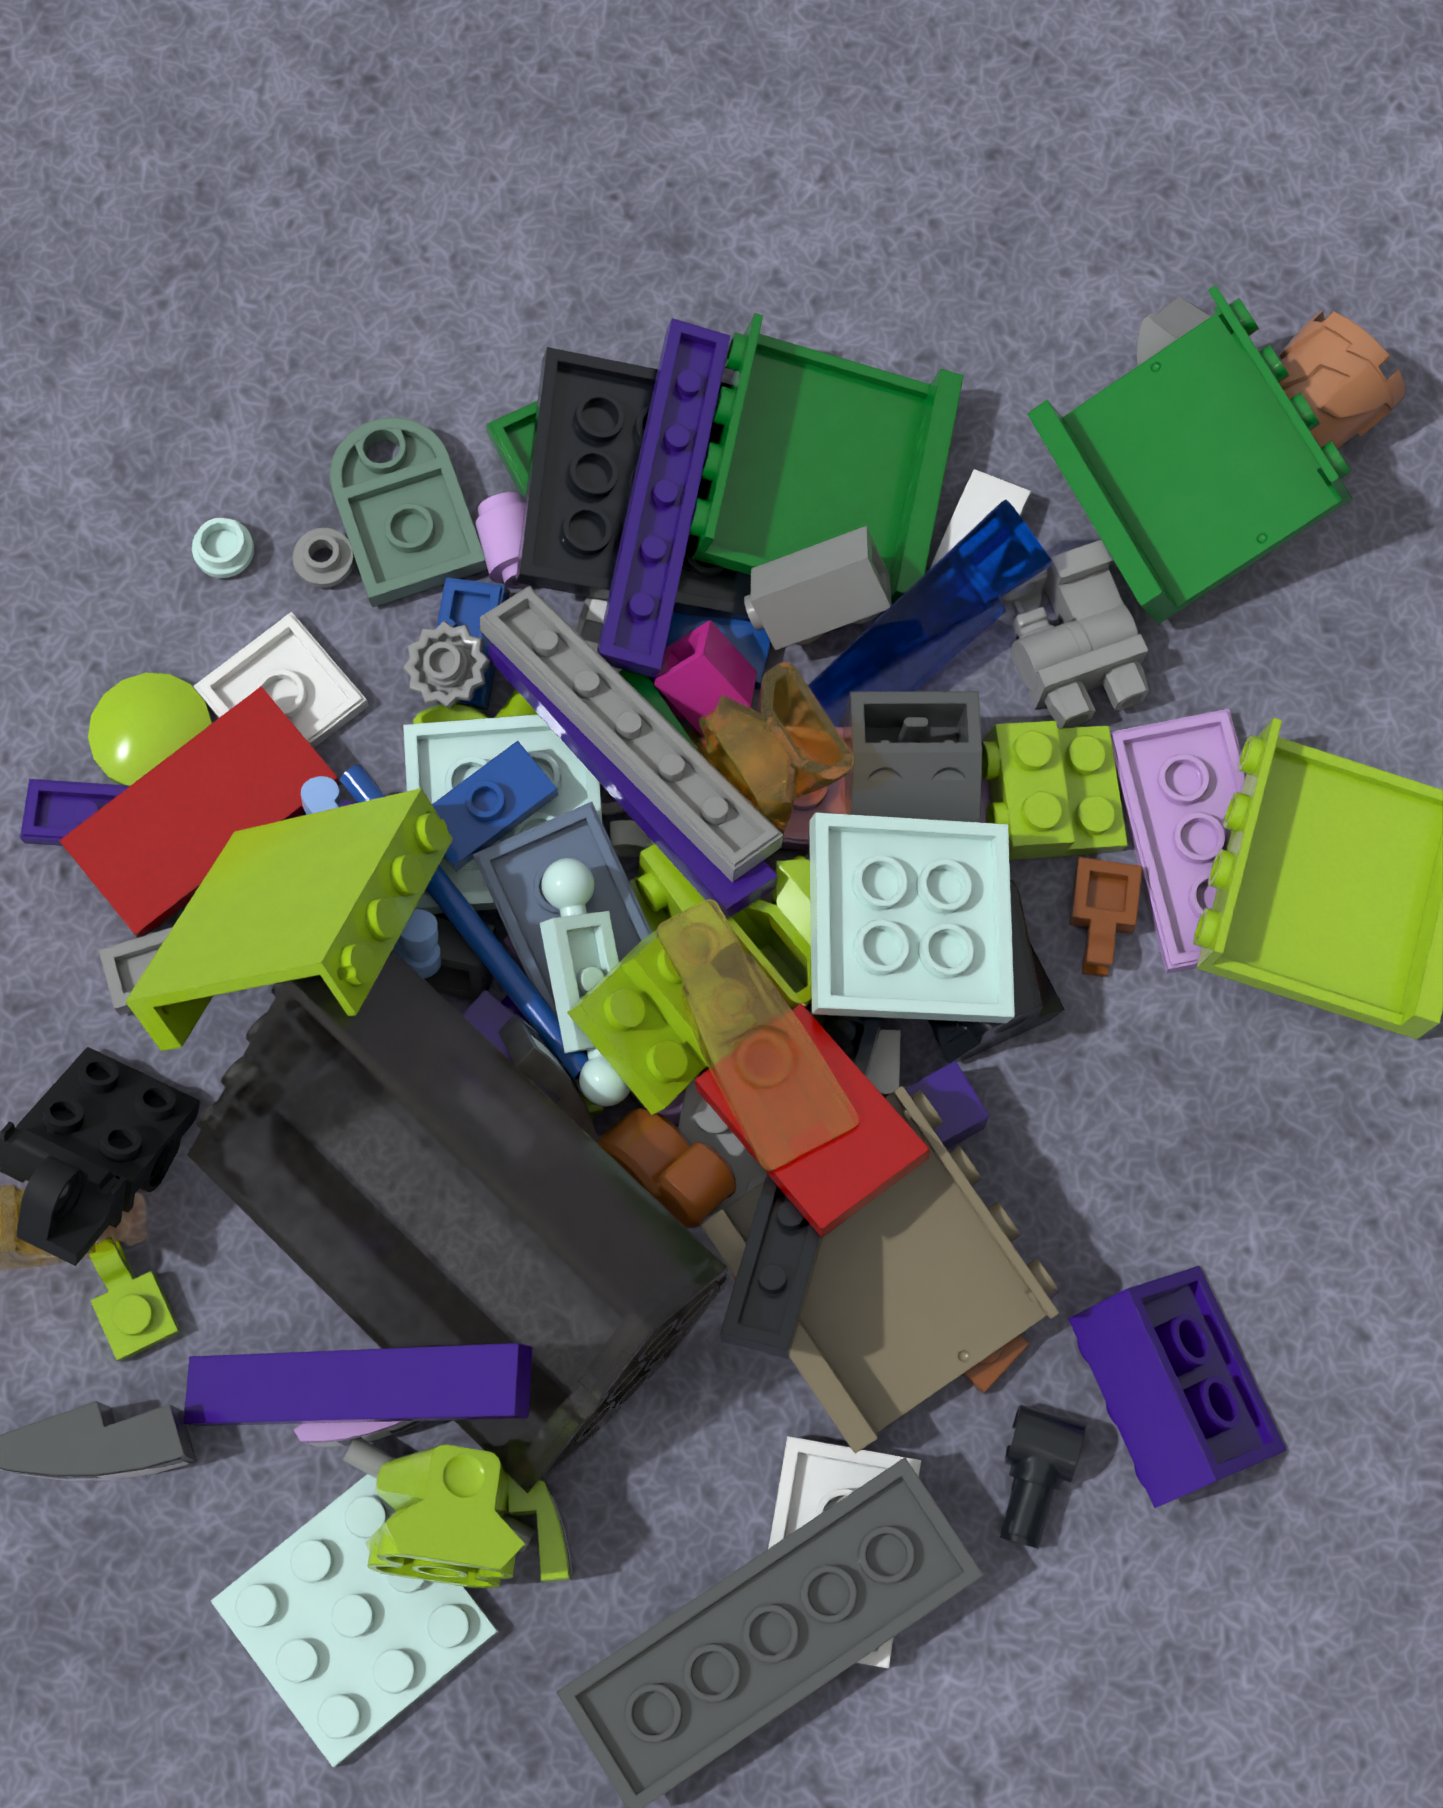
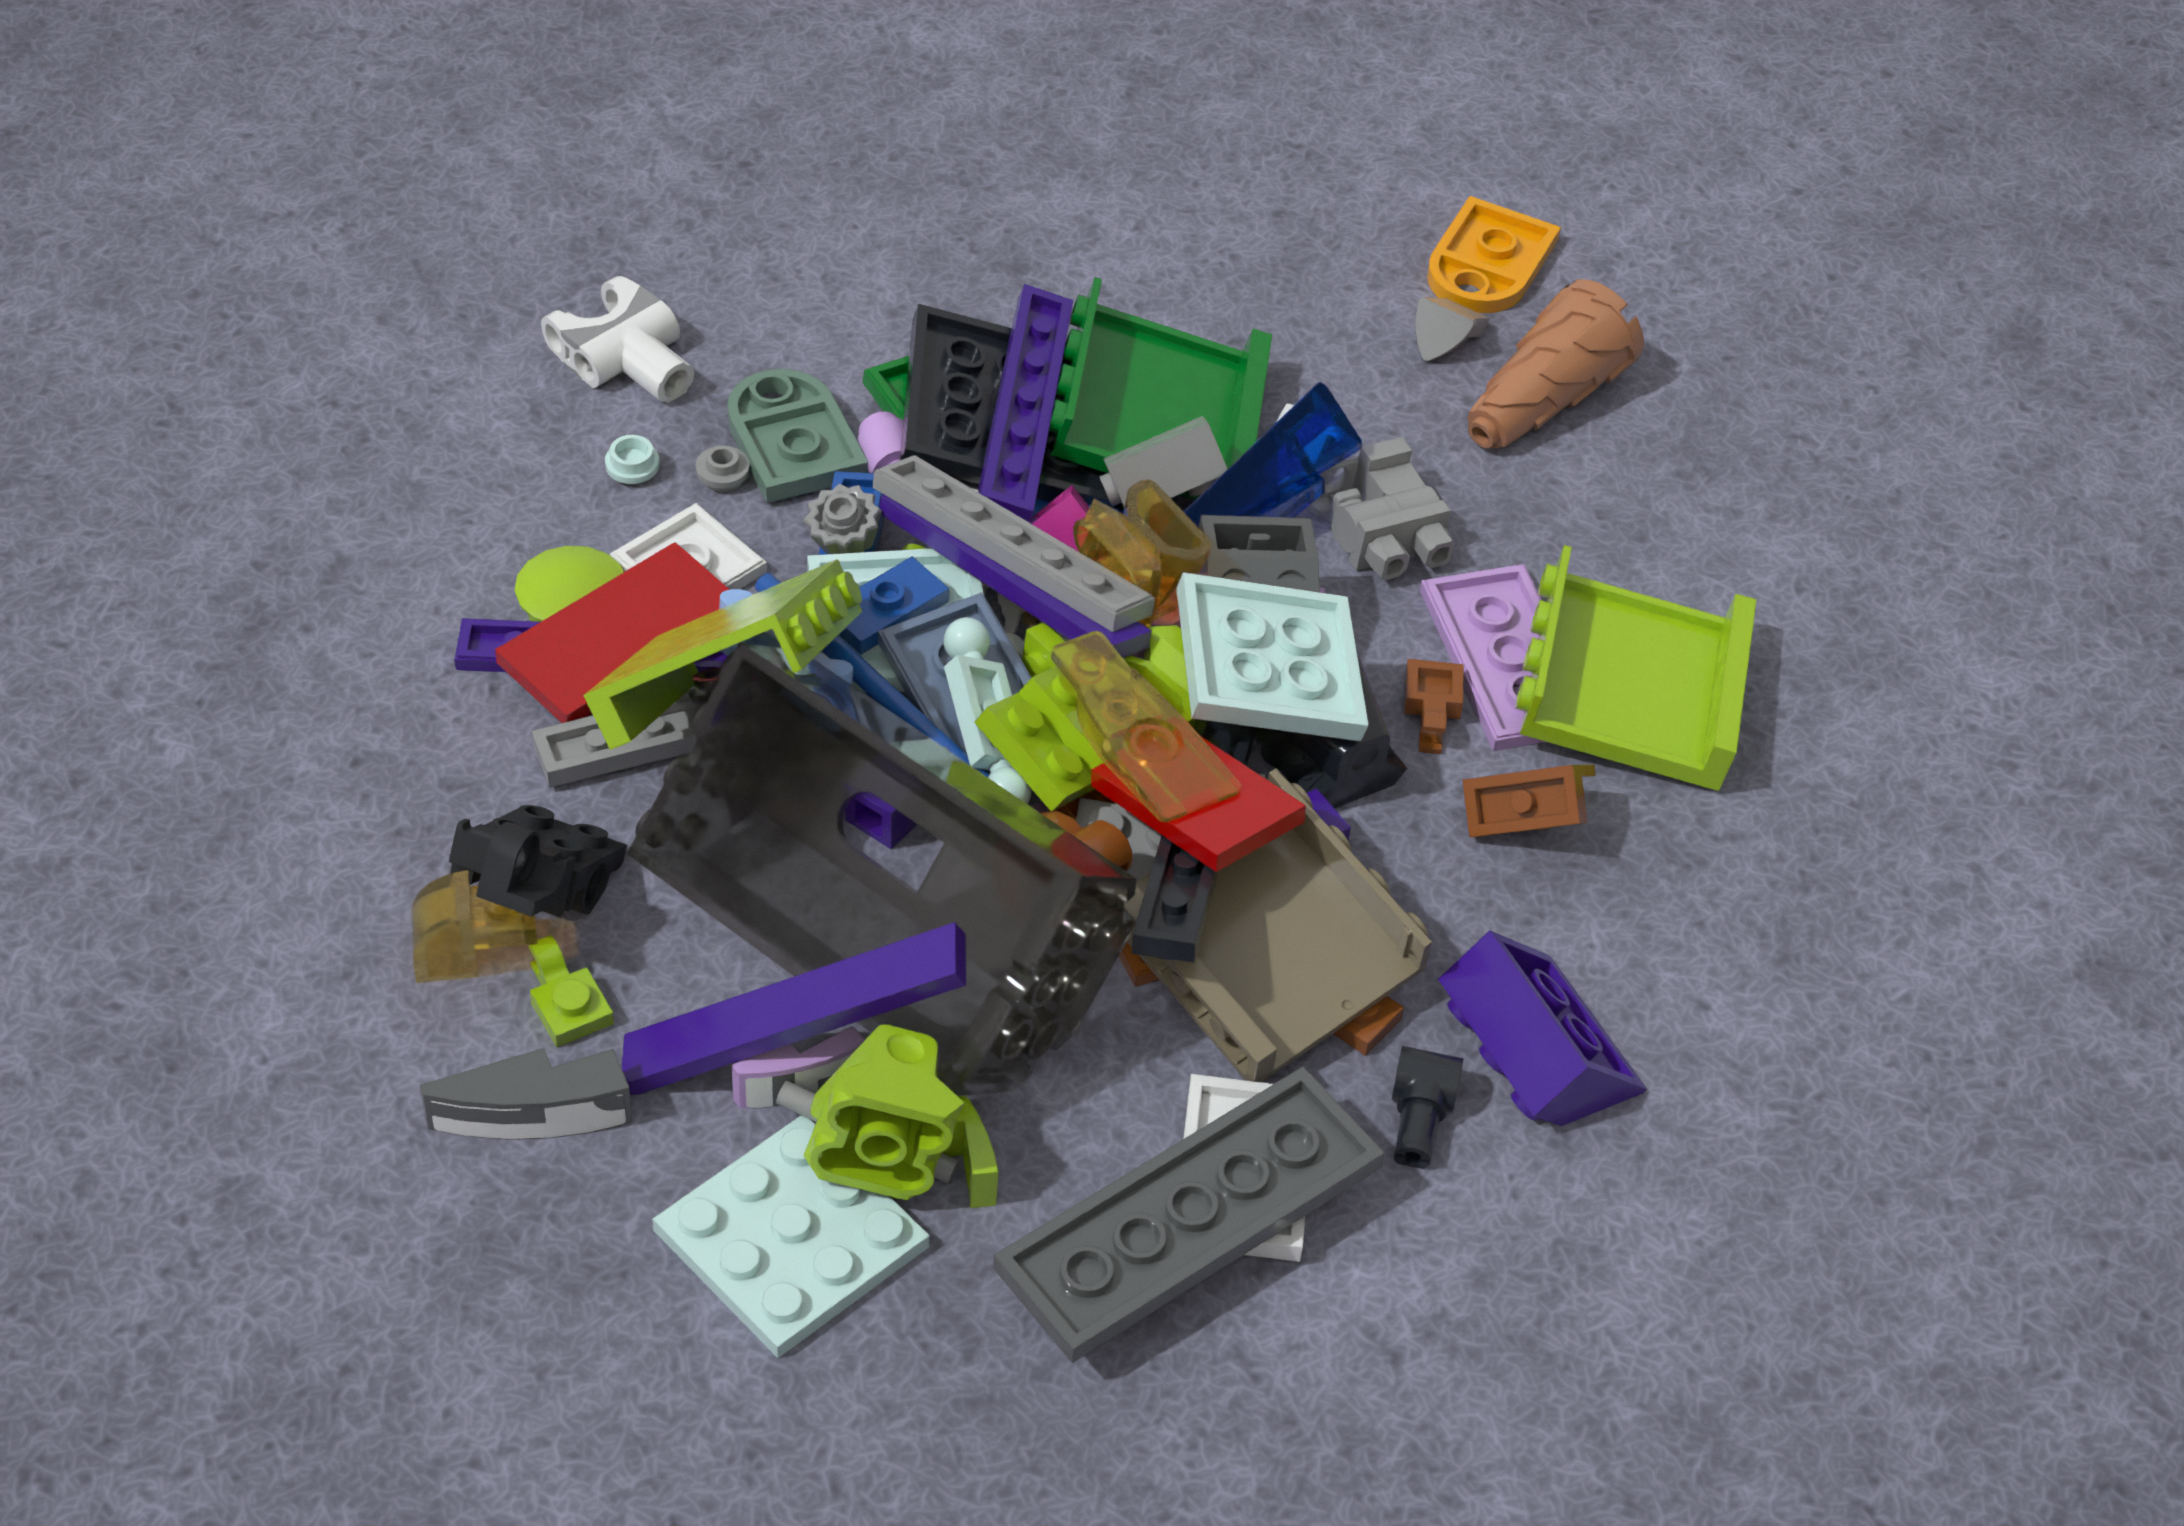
camera: 10 degrees left, 25 degrees down
(219, 373) = (625, 340): none -> white connector
(1053, 789) = (1387, 610): lime plate -> none
(1195, 1067) = (1526, 800): none -> dark orange panel
(1196, 462) = (1478, 382): green panel -> none
(1241, 221) = (1492, 251): none -> light orange tile

